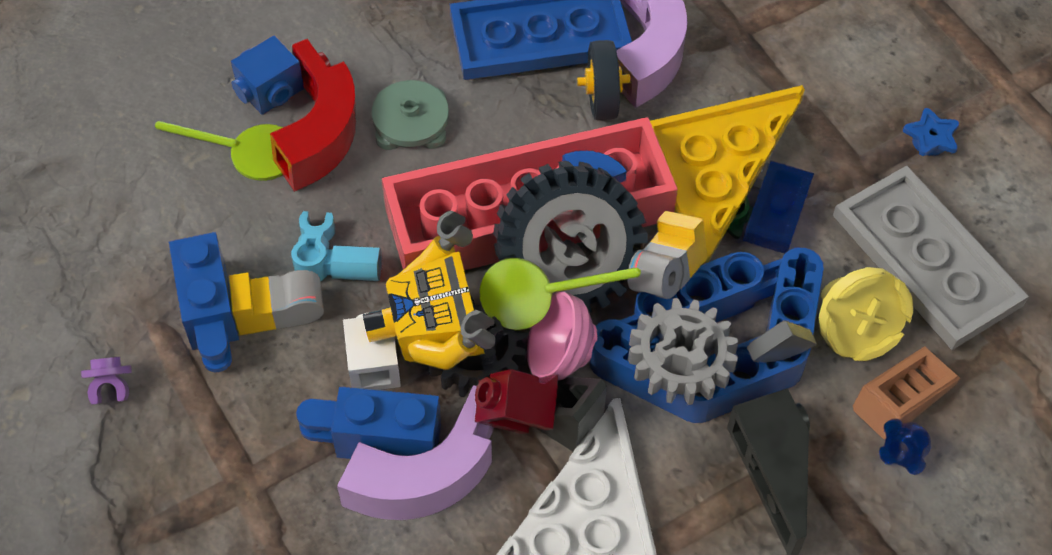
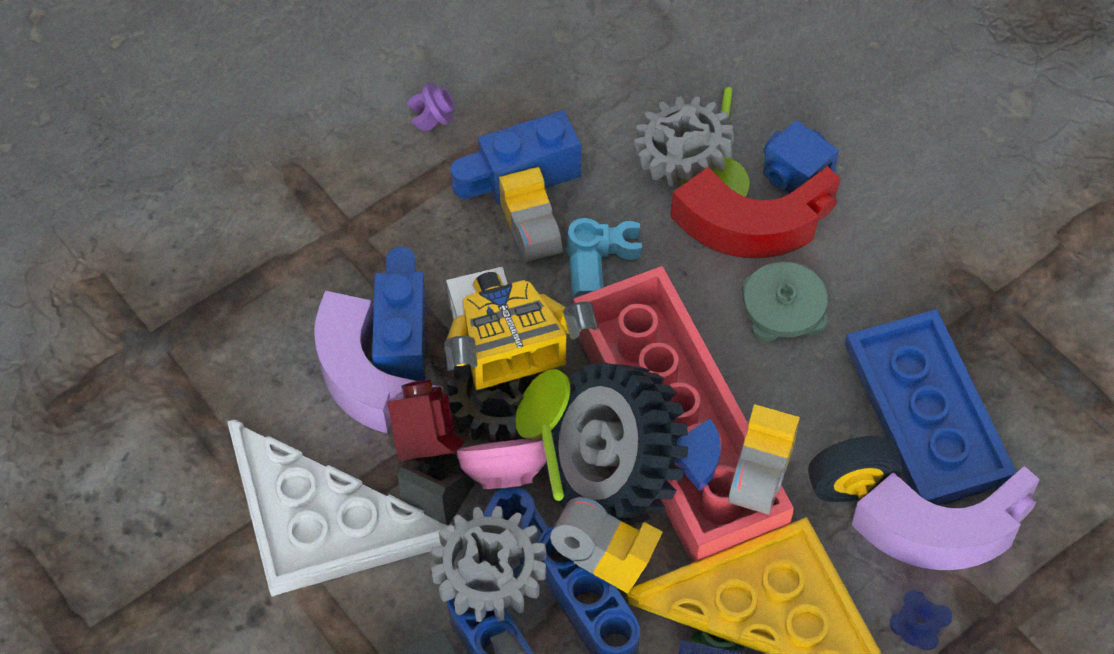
camera: 85 degrees right, 0 degrees up
(220, 159) = (686, 138): none -> light grey gear
(611, 122) = (763, 459): none -> leg
(732, 71) = (916, 634): none -> clear blue plate

